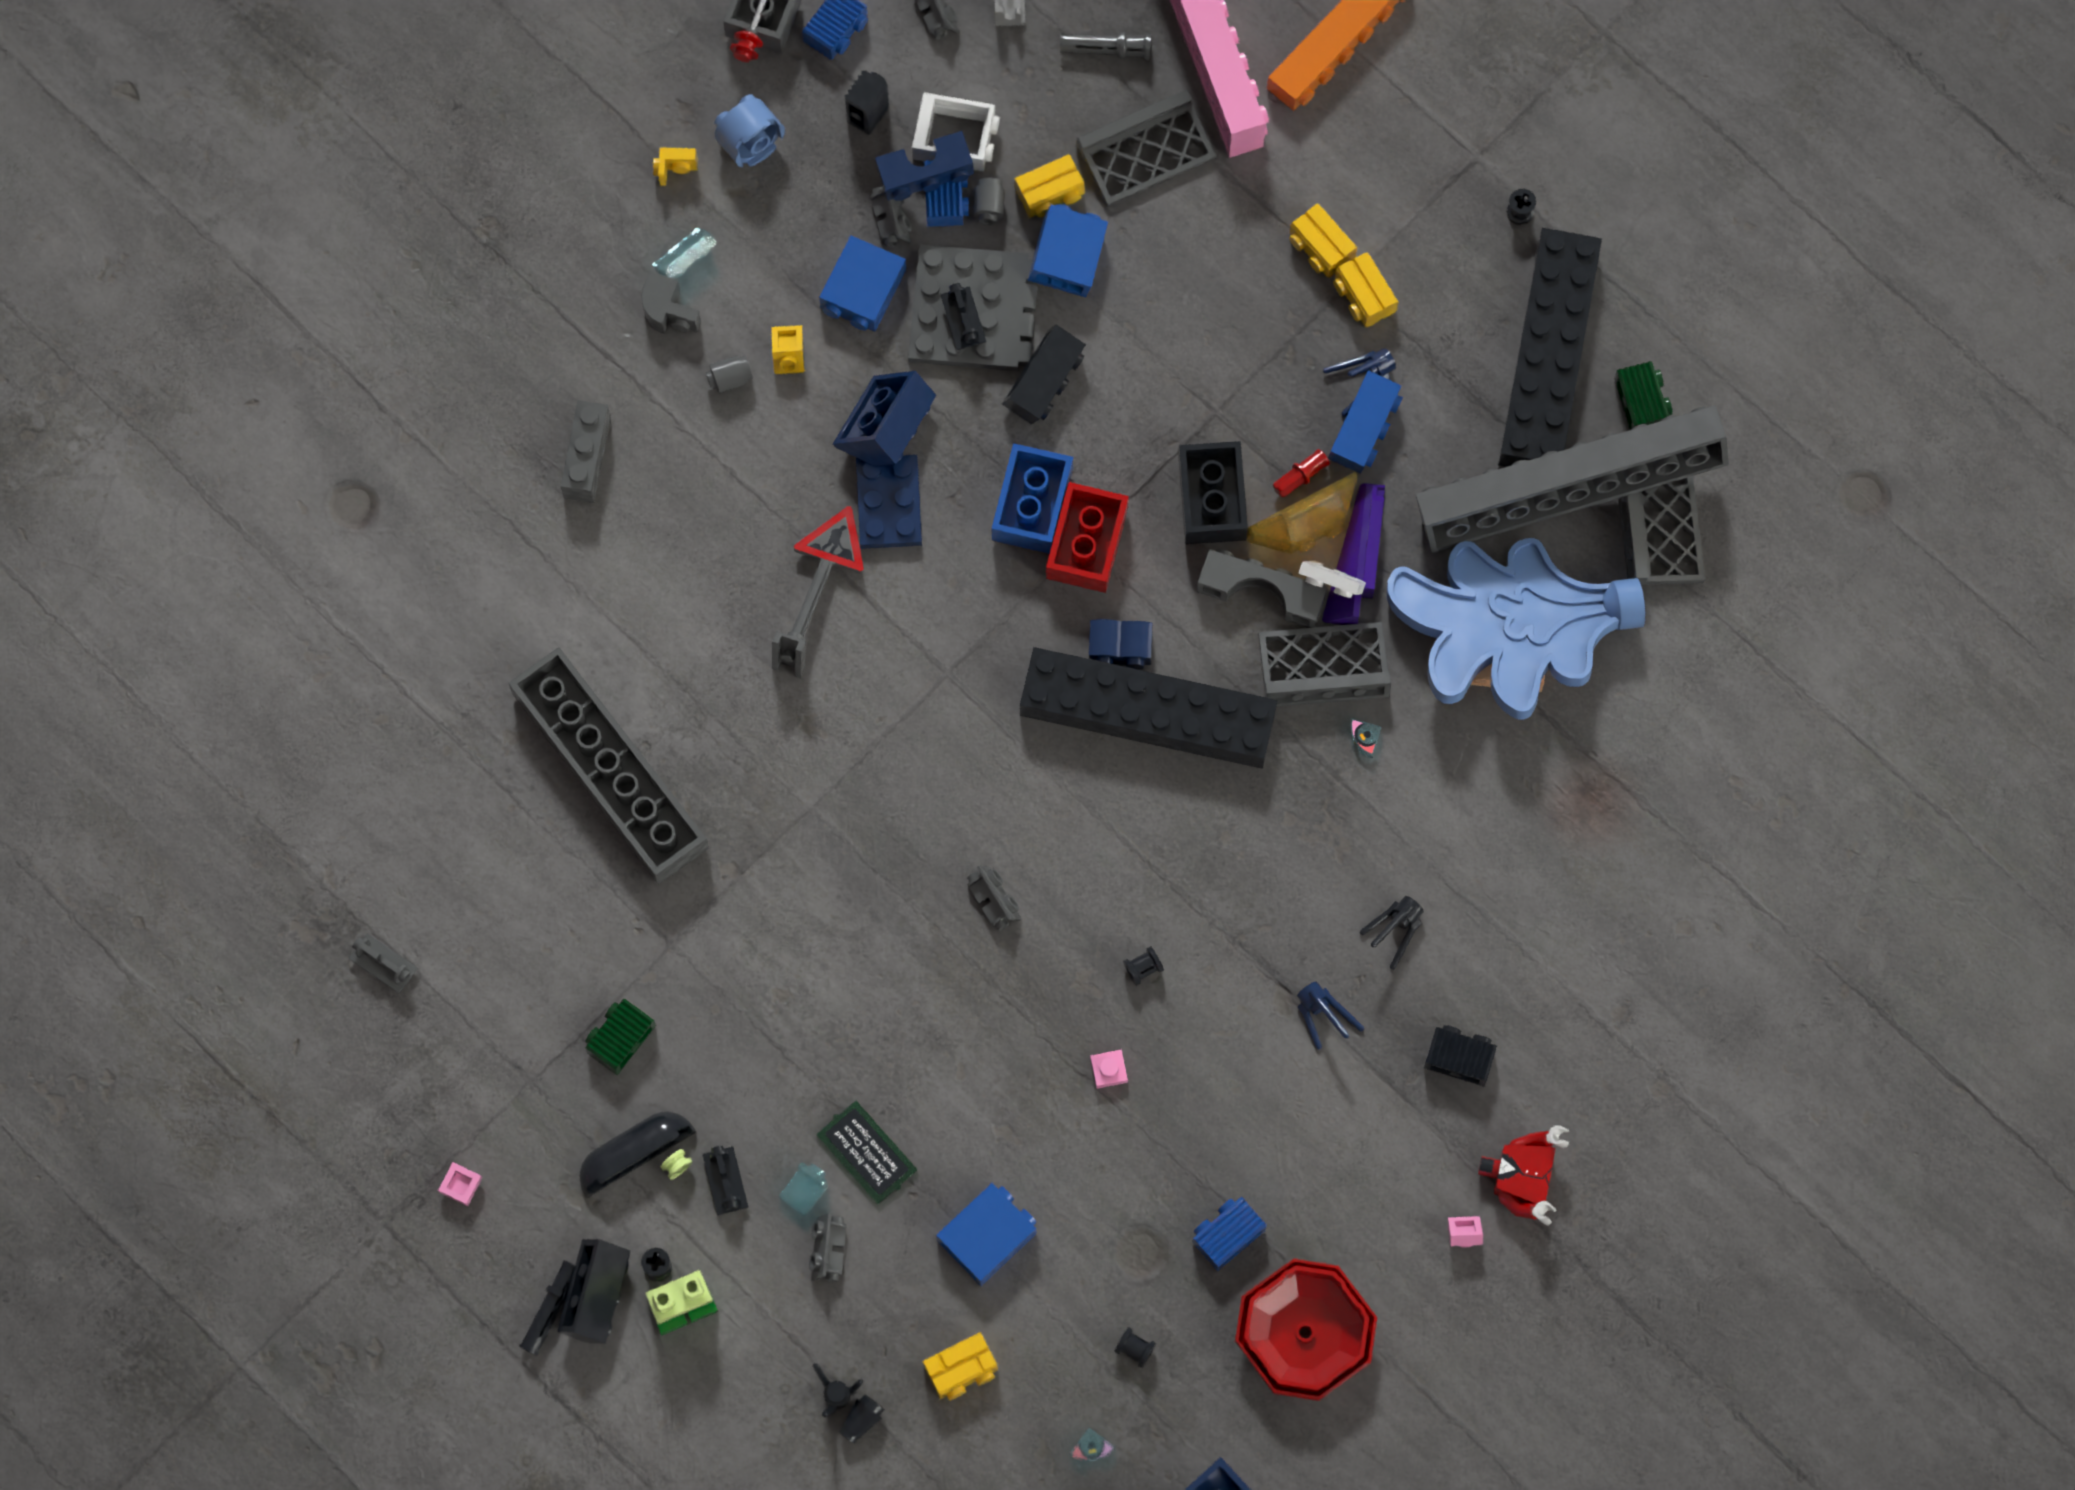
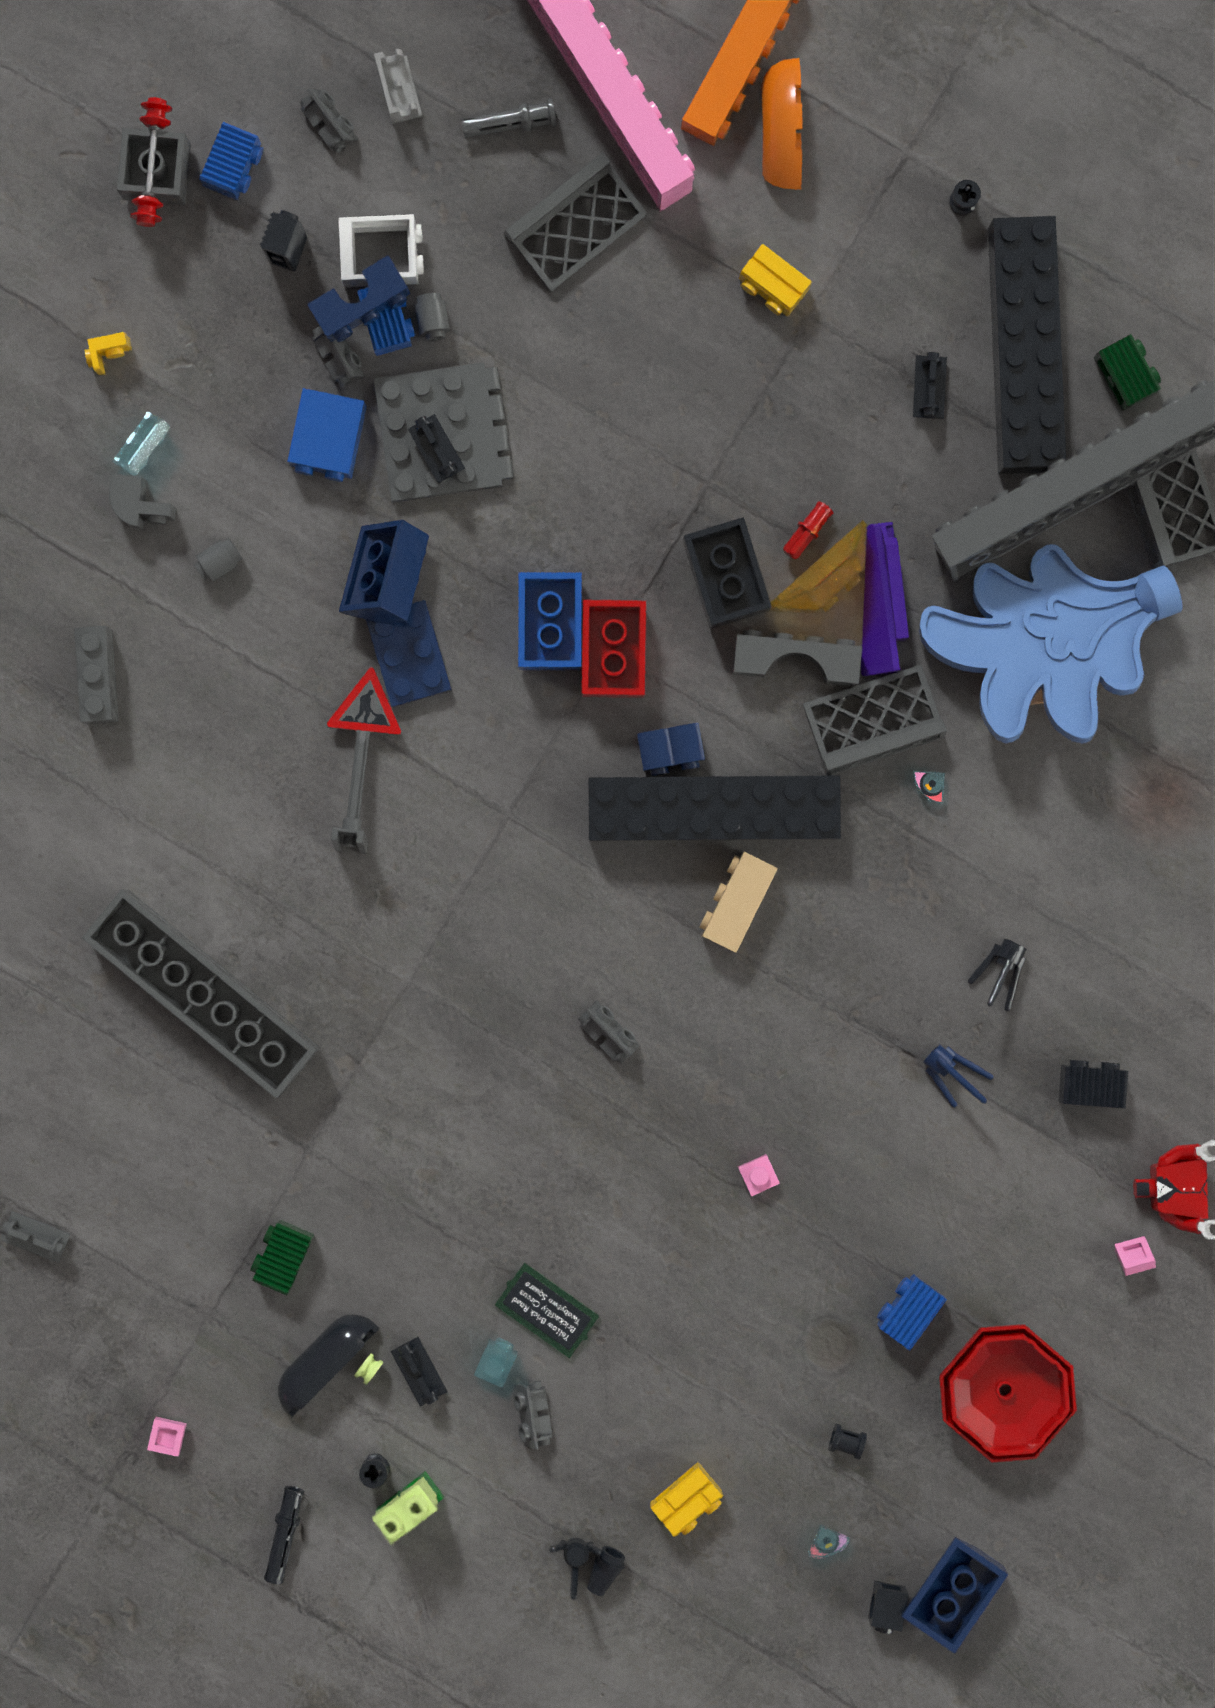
camera: 15 degrees left, 15 degrees up
(594, 1291) = (321, 1514): black brick -> none
(748, 131) = (172, 300): medium blue brick -> none
(787, 349) = (269, 519): yellow bracket -> none
(987, 1233) = (681, 1366): blue brick -> none
(1045, 375) = (531, 488): black brick -> none
(1049, 184) = (489, 286): yellow brick -> none
(1068, 250) = (523, 350): blue brick -> none
(1143, 965) = (768, 1067): black bush -> none
(1151, 800) = (737, 901): none -> tan brick
(1343, 583) = (870, 637): white wing -> none
(1361, 97) = (780, 121): none -> orange brick
(1365, 289) = (829, 323): yellow brick -> none
(1366, 422) = (861, 463): blue brick -> none
(1379, 363) = (858, 399): dark blue plant -> none
(1449, 369) = (929, 386): none -> black hinge

